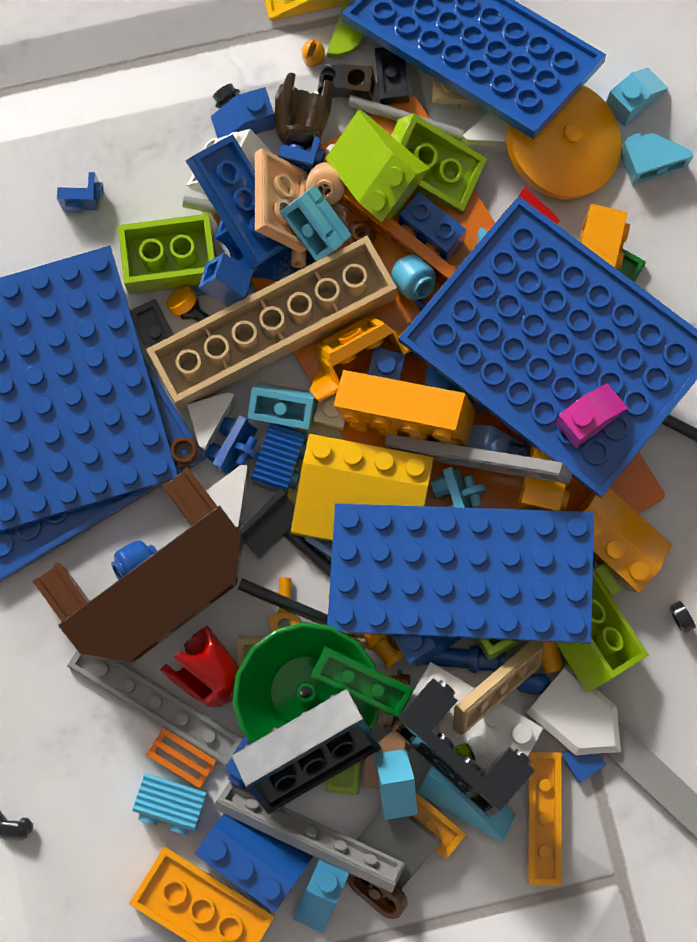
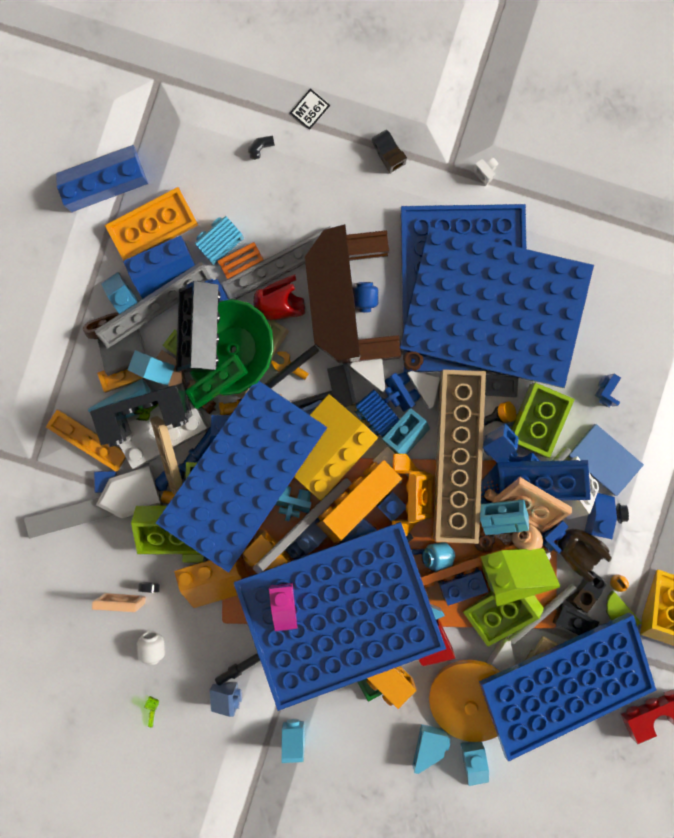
camera: 120 degrees right, 10 degrees up
(167, 143) = (607, 459): none -> medium blue tile

